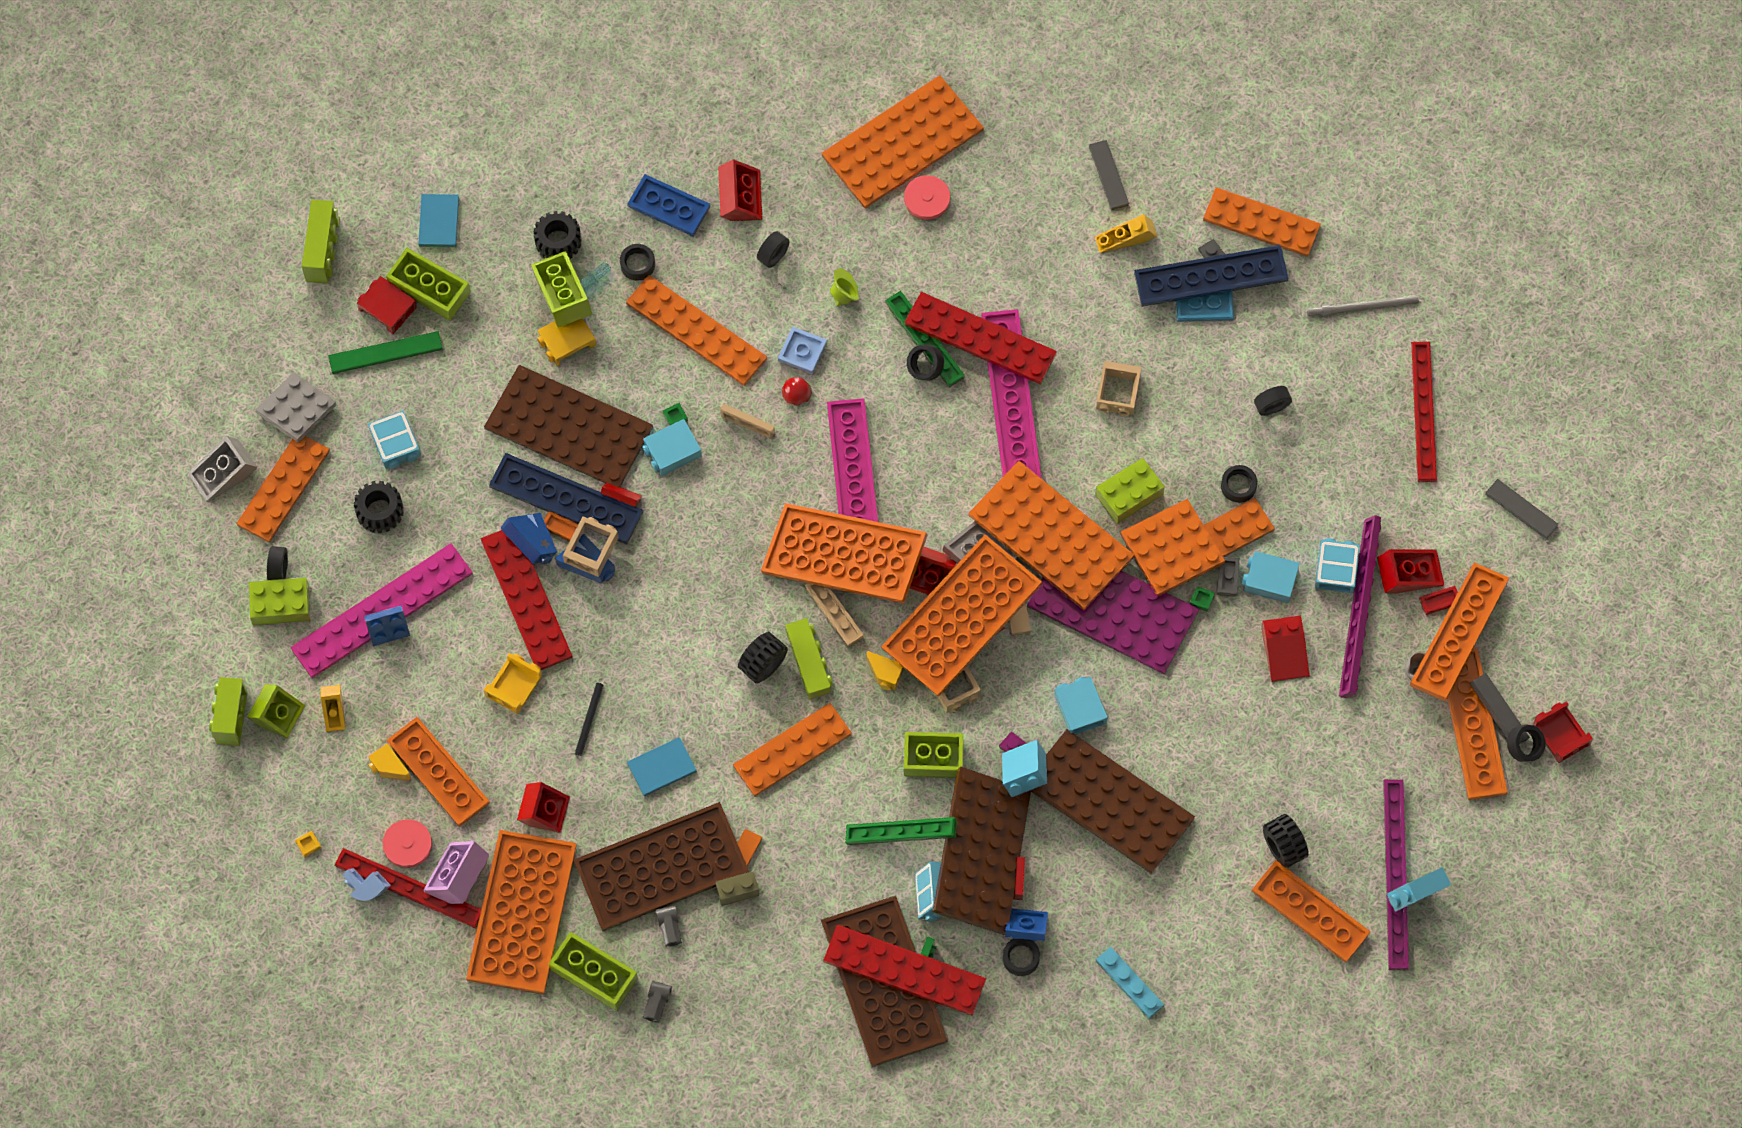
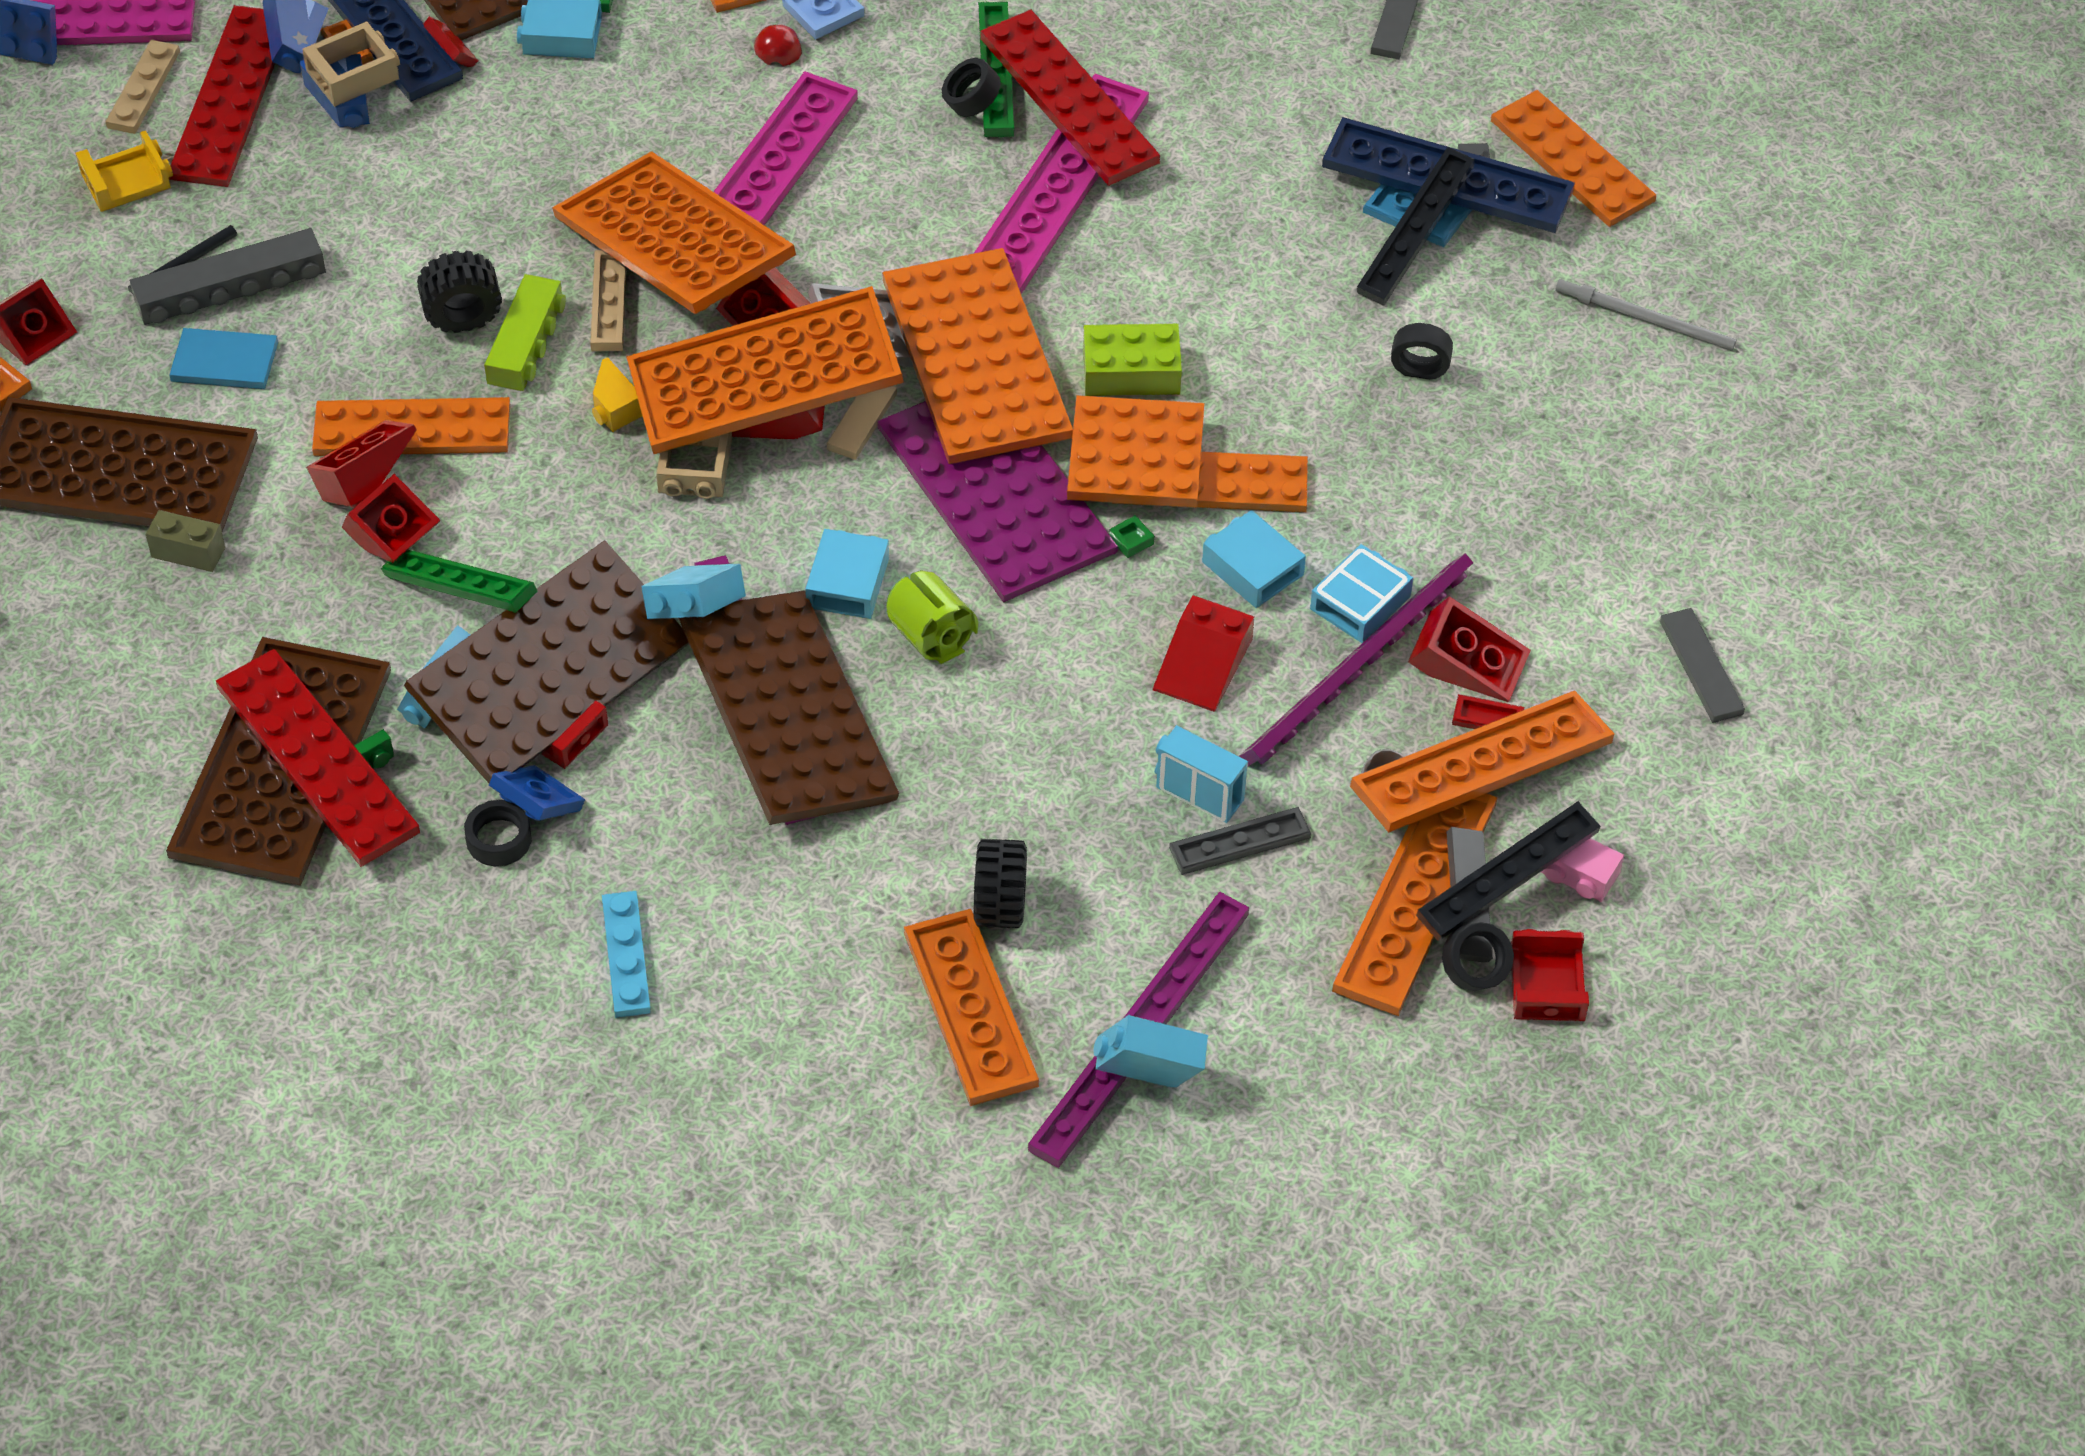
camera: 30 degrees right, 15 degrees down
(473, 620) = (142, 86): none -> tan plate
(625, 716) = (227, 276): none -> dark grey brick
(669, 922) = (61, 532): dark grey piece -> none
(747, 421) = (683, 44): tan tile -> none
(748, 844) = (251, 505): orange tile -> none
(795, 790) = (361, 464): none -> red slope
(832, 814) = (389, 520): none -> red slope
(932, 754) = (583, 513): lime brick -> none
(1121, 371) = (1220, 215): tan window -> none
(1127, 234) = (1376, 83): yellow slope -> none
(1141, 707) = (931, 616): none -> lime cylinder
(1218, 321) = (1415, 226): none -> black plate
(1228, 577) = (1191, 529): dark grey plate -> none
(1239, 497) = (1297, 410): black tyre -> none
(1334, 721) = (1201, 773): none -> medium azure brick
(1371, 743) = (1239, 840): none -> dark grey tile
(1423, 412) = (1640, 479): red tile -> none
(1514, 690) = (1508, 871): none -> black plate
(1539, 661) = (1587, 869): none -> bright pink brick

